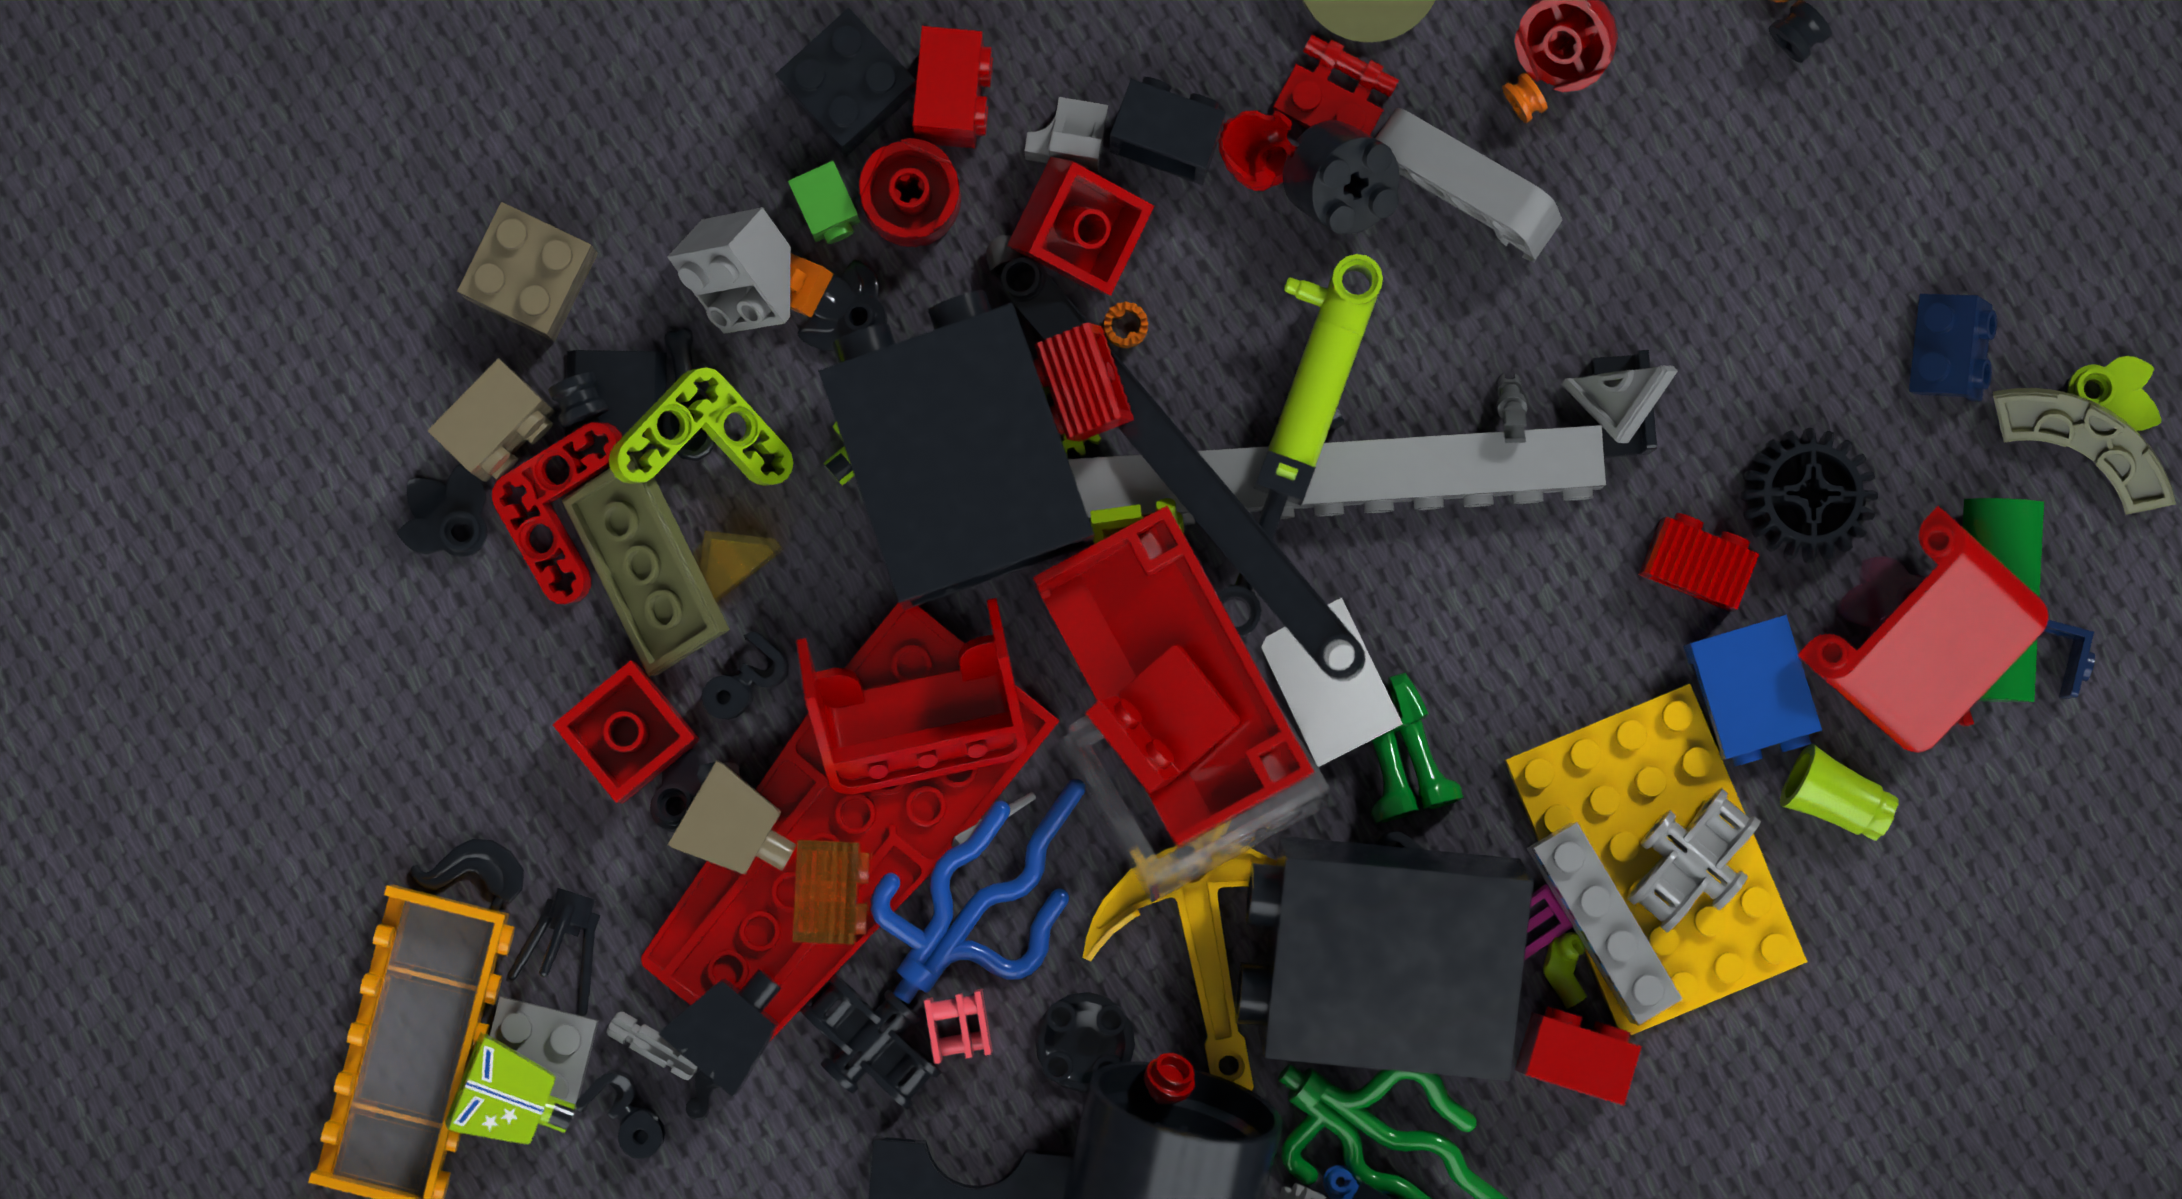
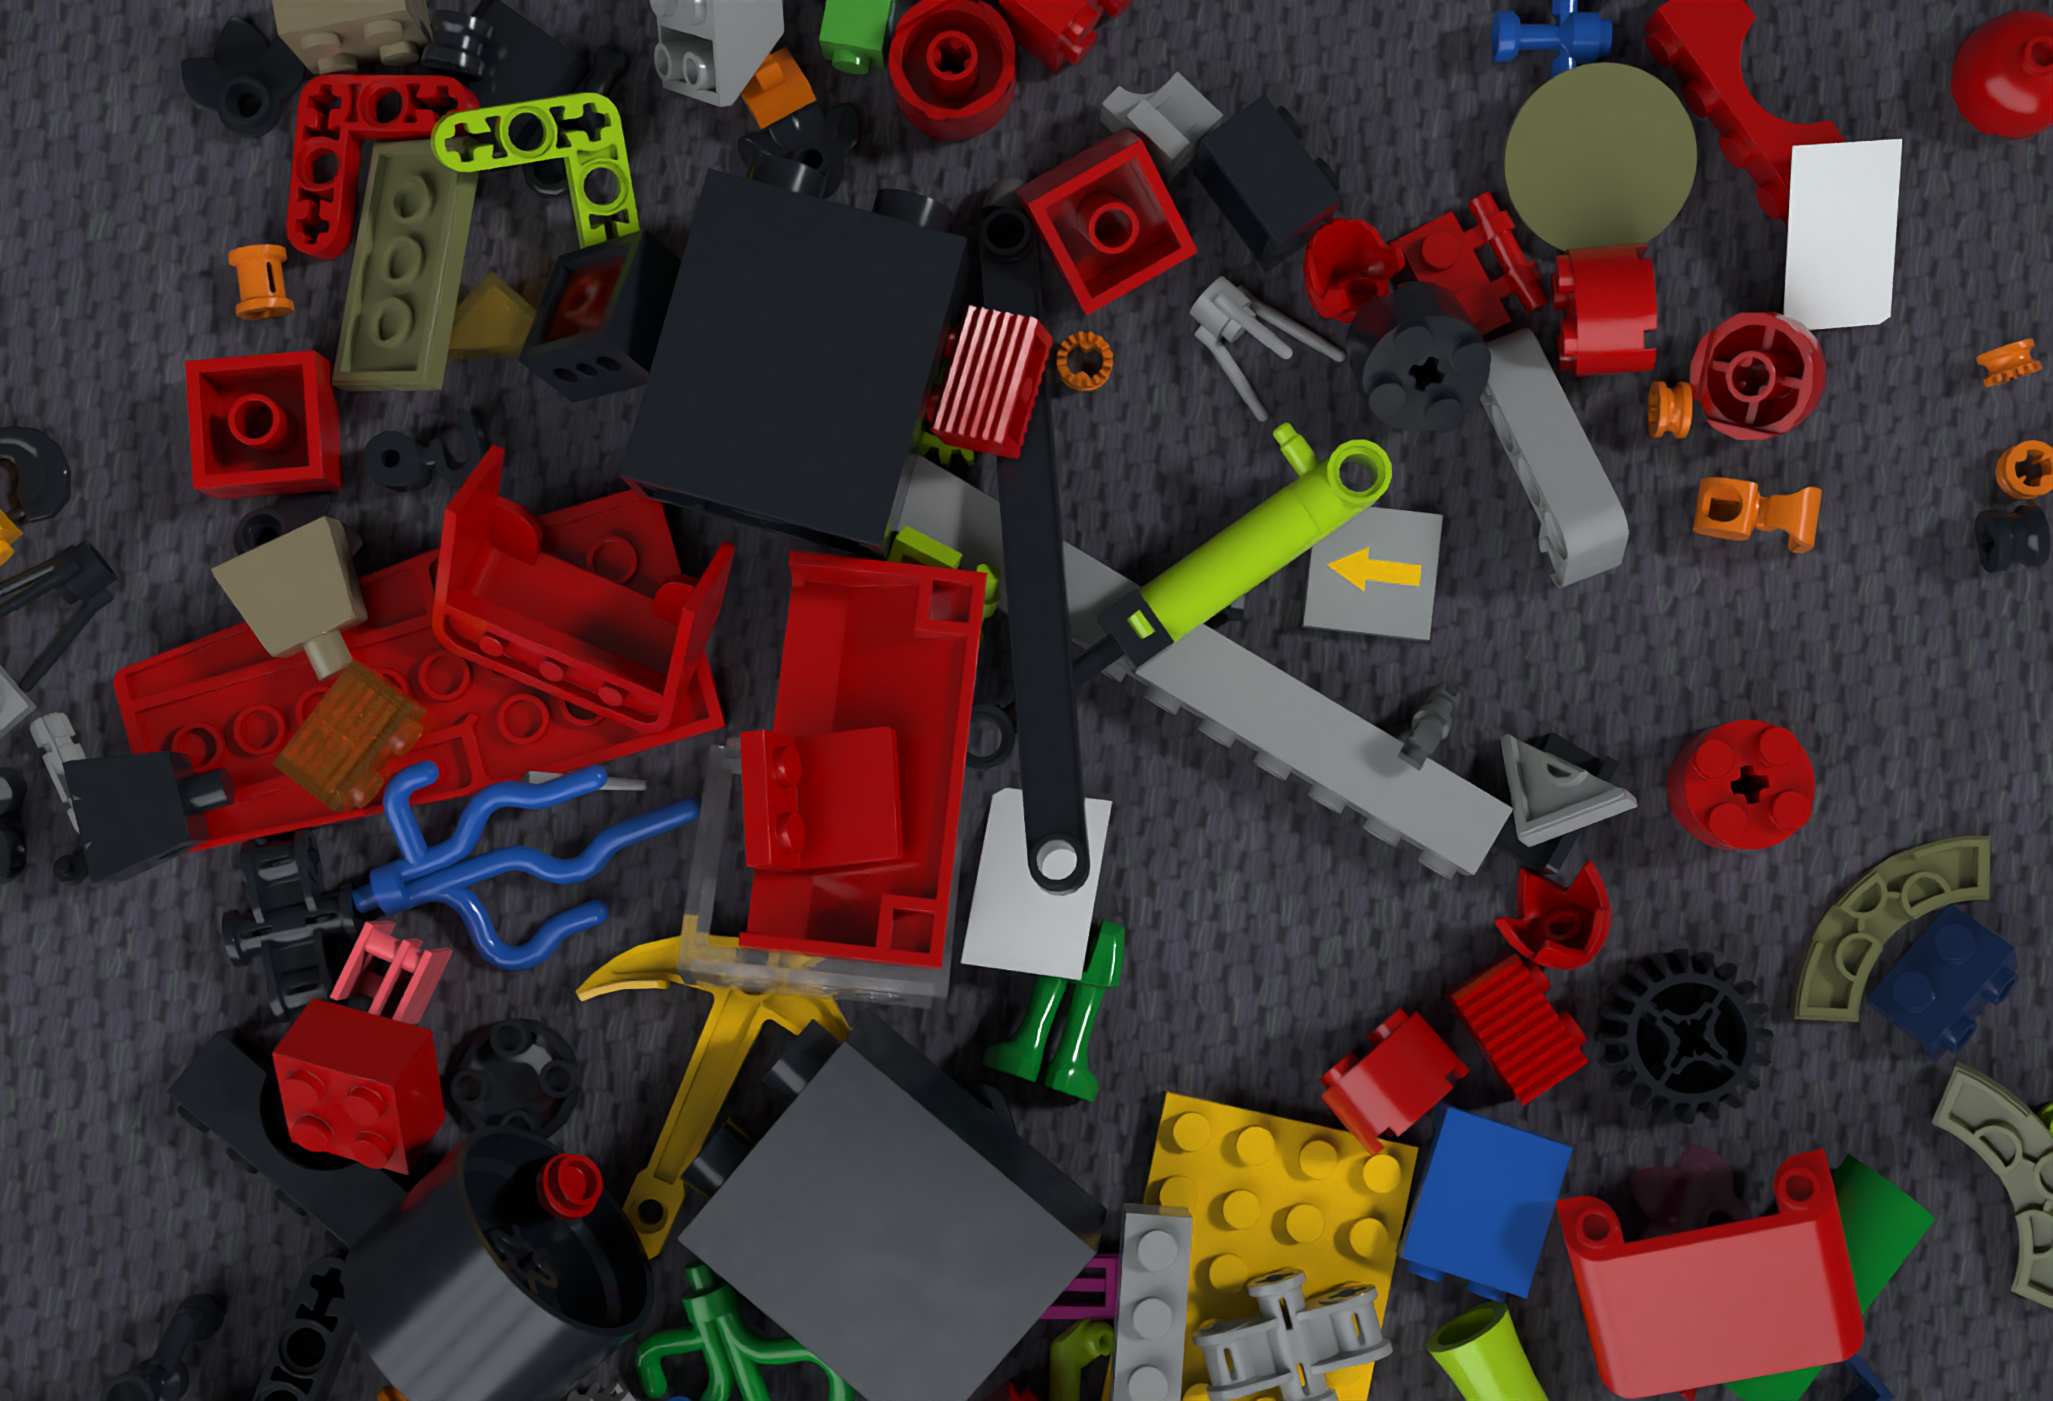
camera: 35 degrees right, 0 degrees up
(553, 641) = (261, 281): none -> orange bush
(806, 508) = (602, 317): none -> black piece
(992, 1108) = (359, 1086): none -> red brick
(1199, 226) = (1232, 311): none -> light grey plant
(1411, 335) = (1375, 575): none -> light grey tile
(1440, 62) = (1607, 309): none -> red brick
(1612, 133) = (1735, 508): none -> orange leg
(1643, 652) = (1392, 1081): none -> red brick
(1681, 478) = (1559, 923): none -> red piece
(1761, 320) = (1777, 777): none -> red brick
(1875, 333) = (1872, 909): none -> olive tile

